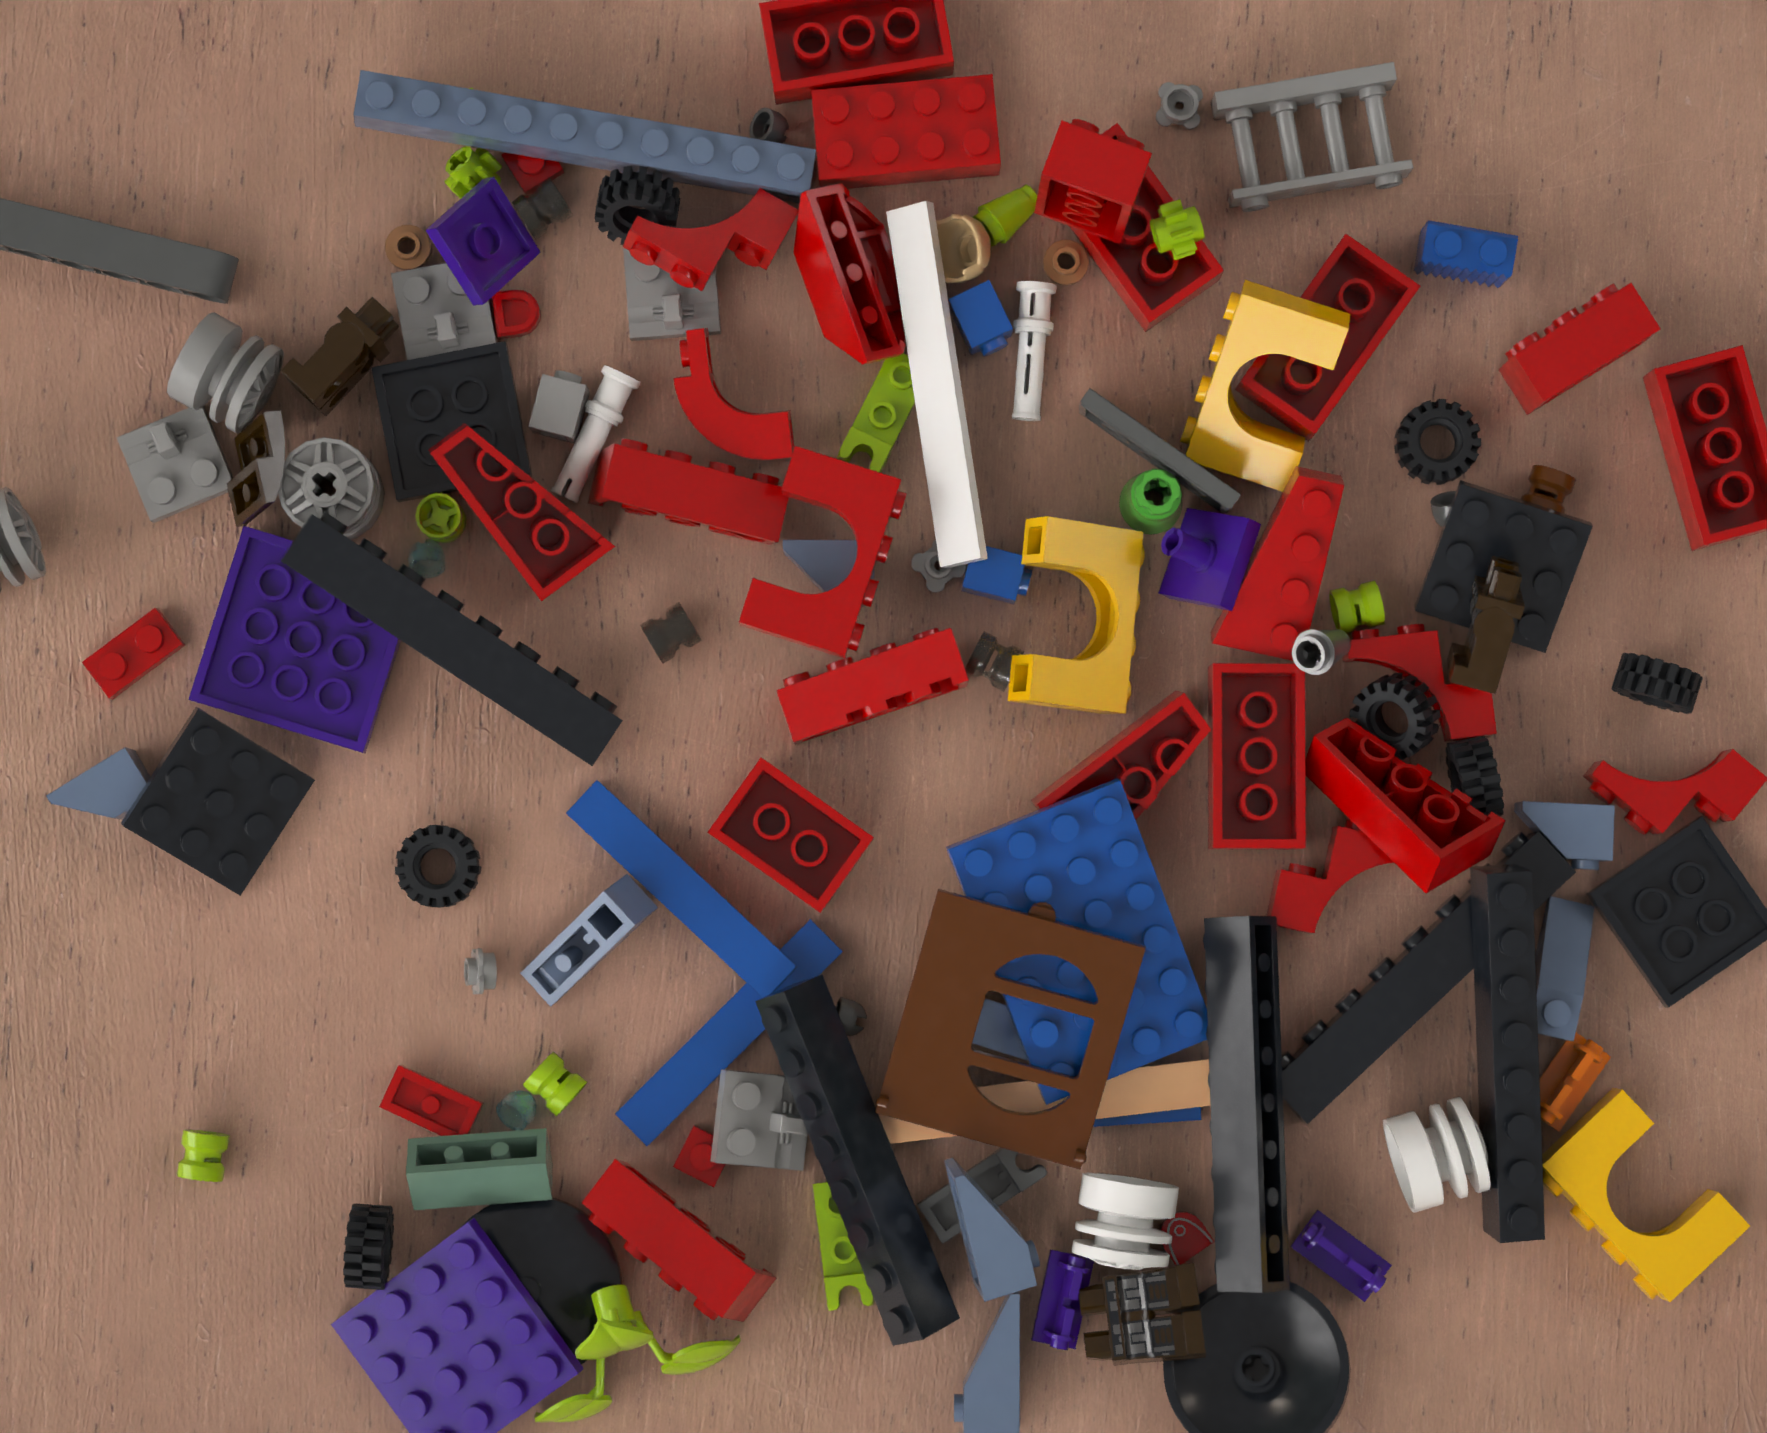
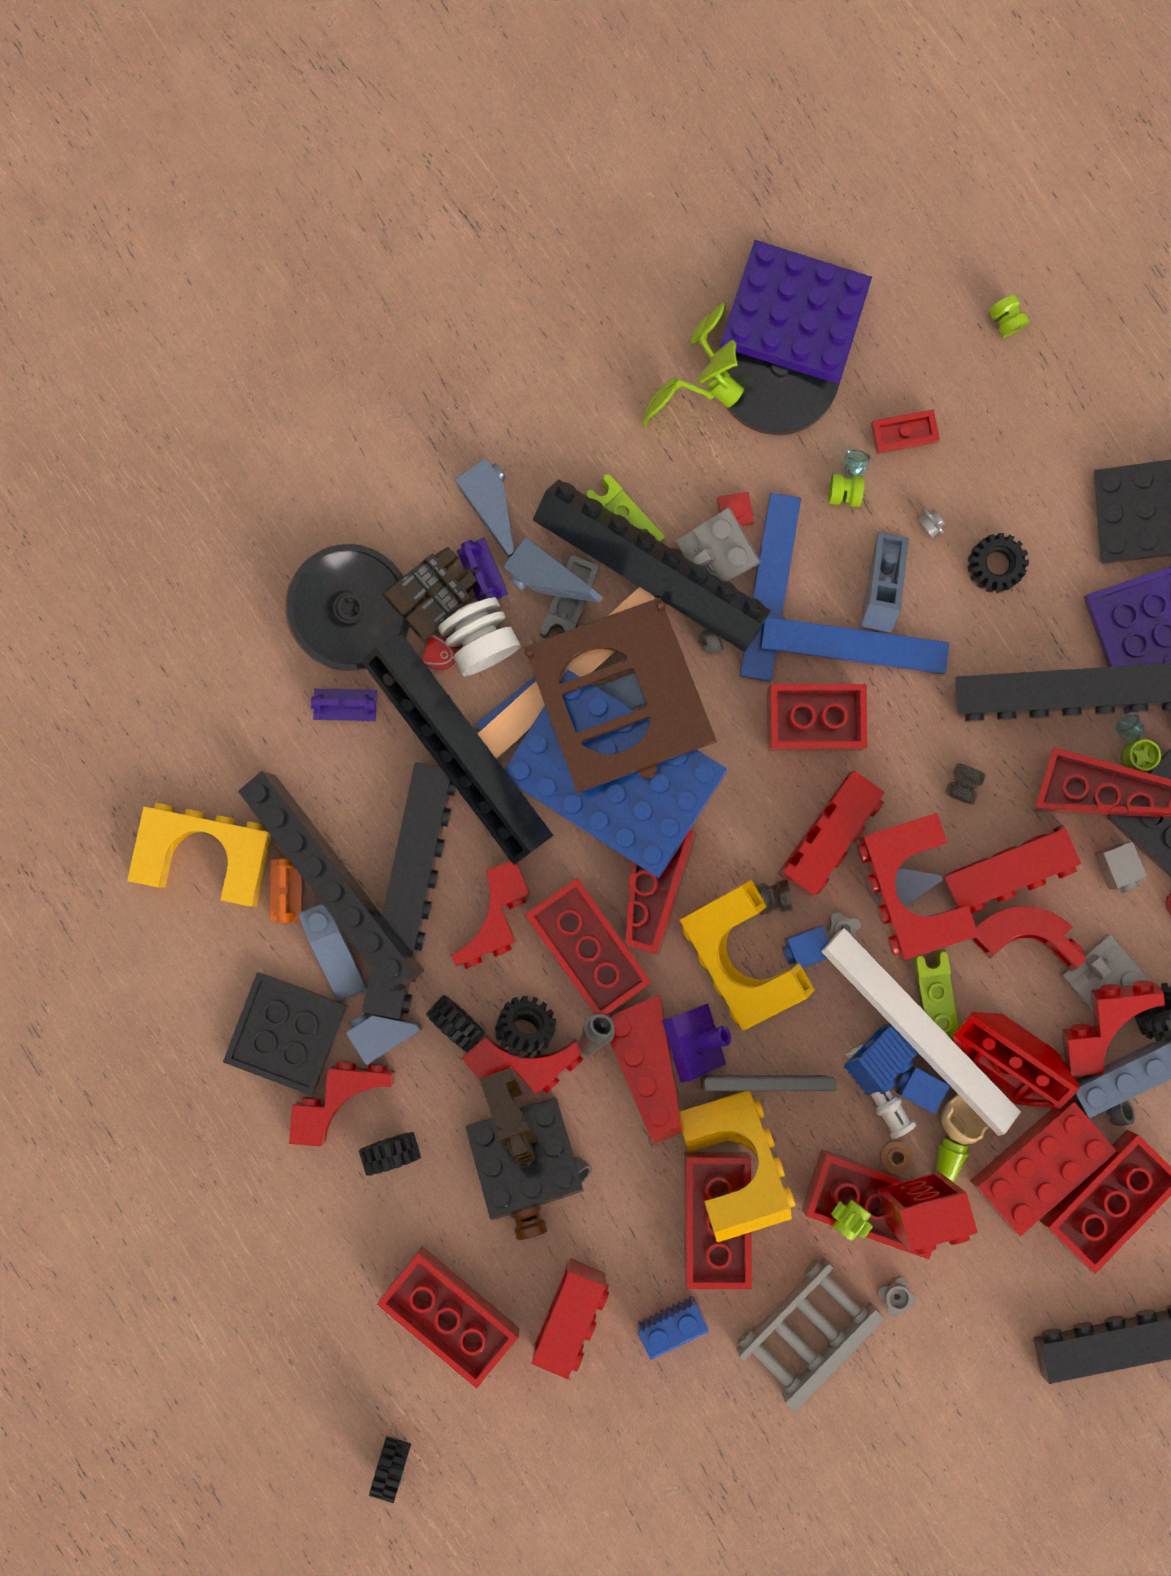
camera: 145 degrees right, 0 degrees up
(368, 1246) = (884, 329): black tyre -> none
(479, 1169) = (854, 413): sand green brick -> none
(603, 413) = (1093, 880): white pin -> none
(676, 1243) = (716, 450): red wedge -> none
(1007, 384) = (881, 1060): none -> blue brick
(1142, 513) = (740, 1044): bright green plant -> none
(1357, 607) = (587, 1082): lime wheel -> none
(1399, 806) = (487, 976): red wedge -> none
(1437, 1154) = (330, 796): white wheel -> none
(1453, 419) = (597, 1219): black tyre -> none

